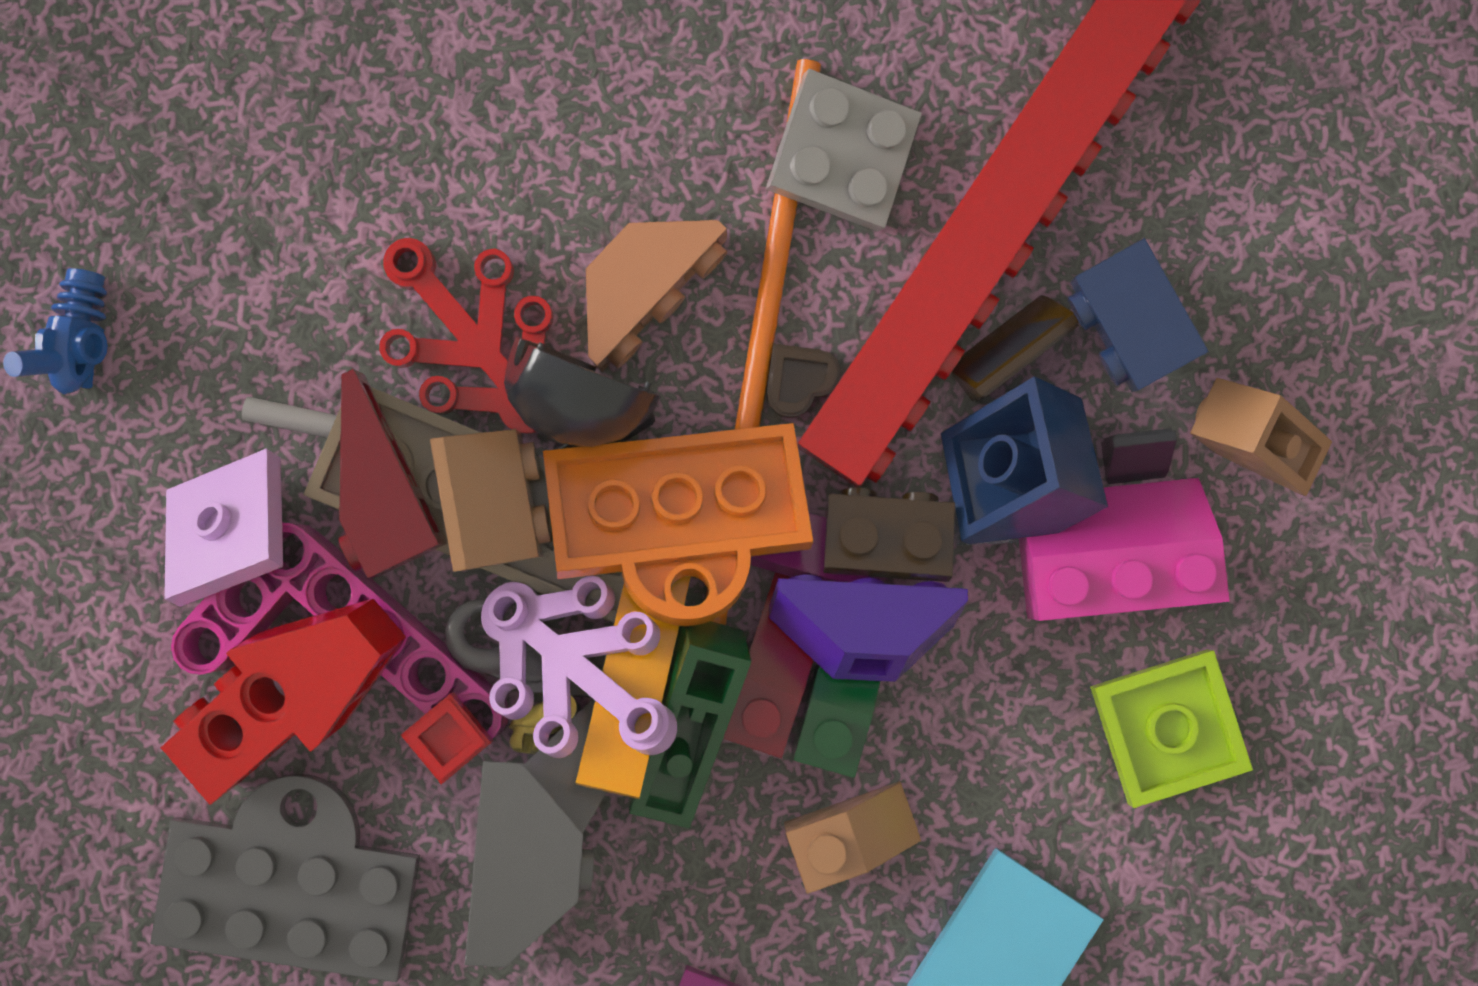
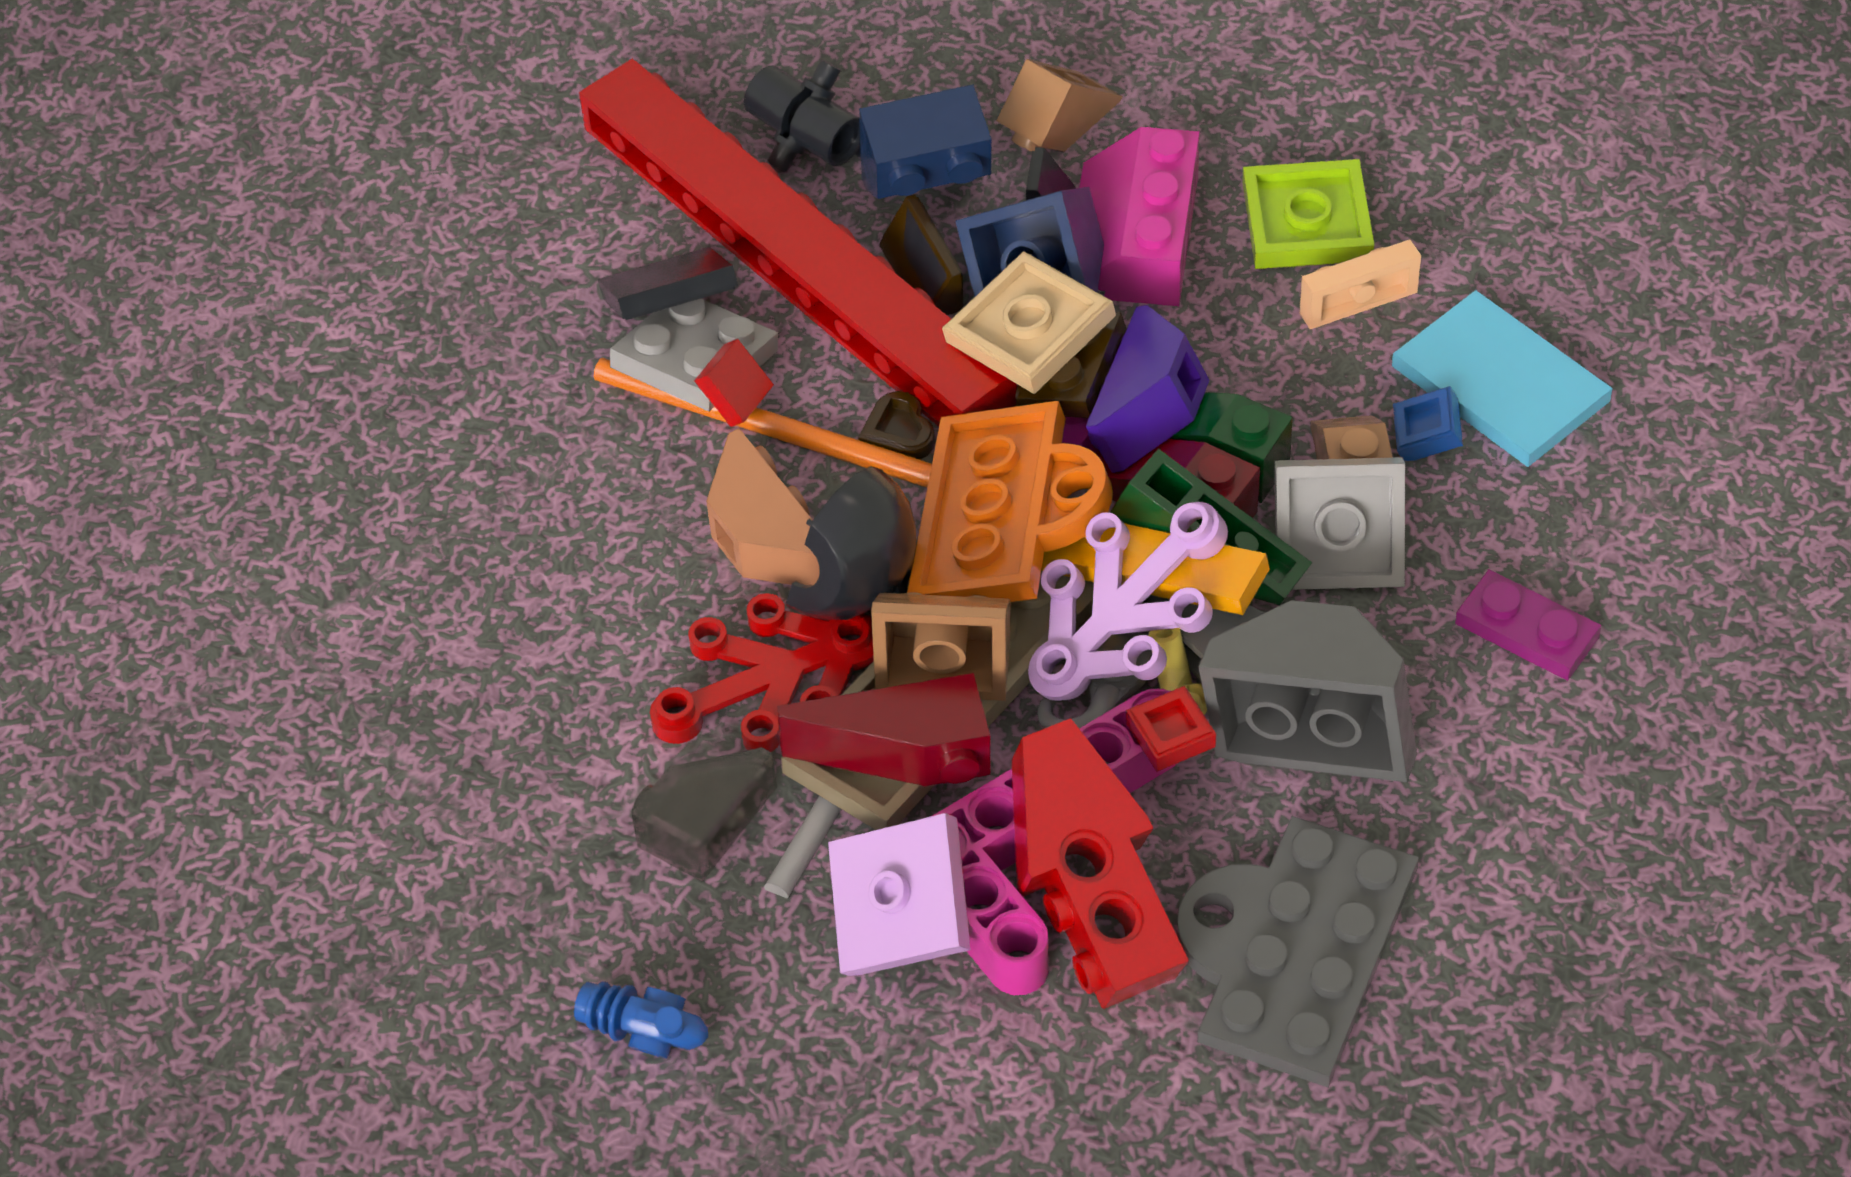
camera: 75 degrees left, 35 degrees down
(293, 316) = (702, 808): none -> clear smoke slope
(746, 849) = (1344, 520): none -> light grey plate
(789, 205) = (734, 382): none -> red tile
(910, 486) = (1029, 322): none -> tan tile
(911, 98) = (668, 283): none -> black tile
(914, 901) = (1427, 424): none -> blue tile
(1099, 820) = (1359, 284): none -> light nougat plate
(1176, 176) = (803, 115): none -> black pin

